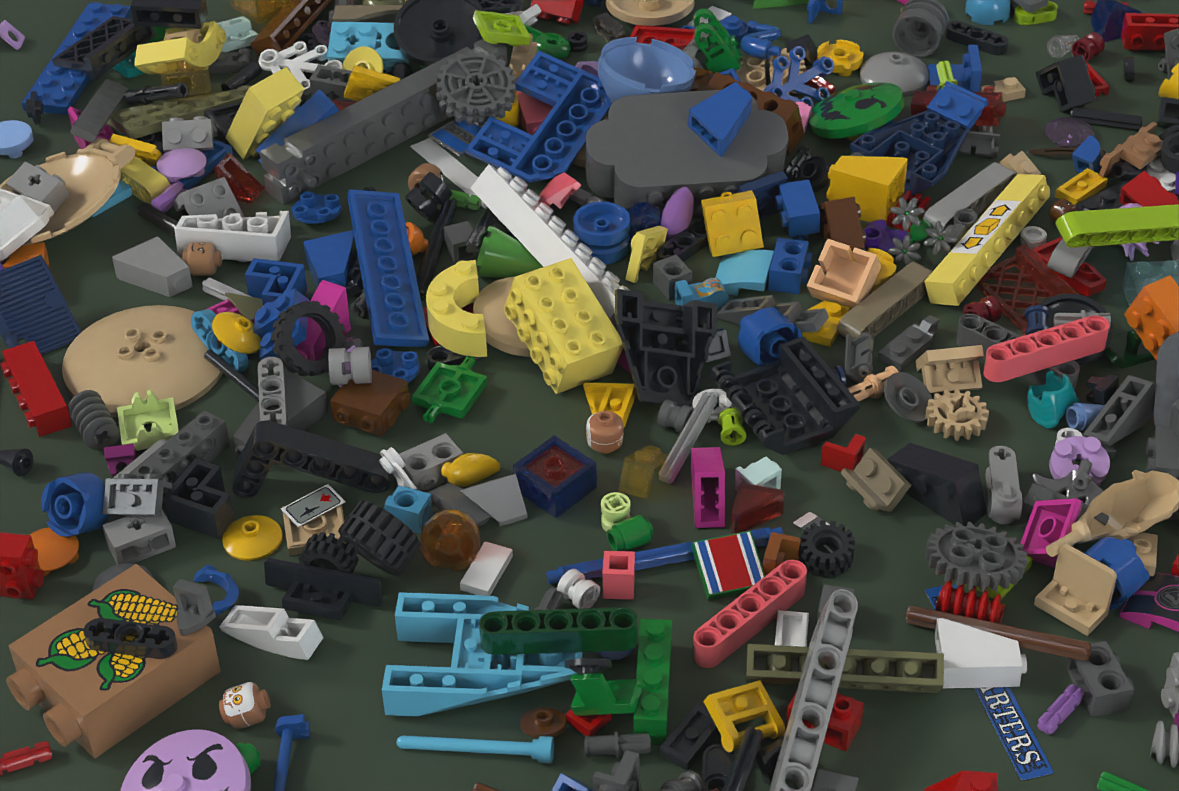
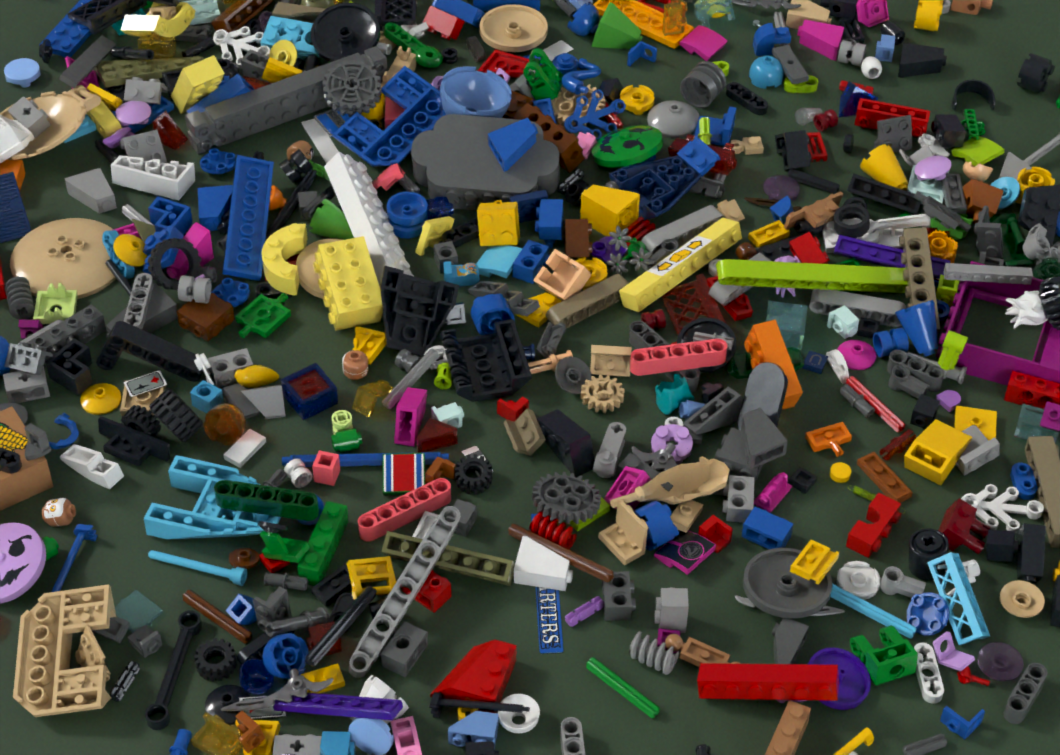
camera: 10 degrees right, 5 degrees up
(202, 258) = (126, 189): medium nougat head -> none
(501, 28) = (386, 41): lime plate -> none
(678, 212) = (464, 208): medium lavender arm -> none
(909, 344) = (594, 335): dark grey hinge -> none
(1043, 313) = (682, 333): dark blue bush -> none

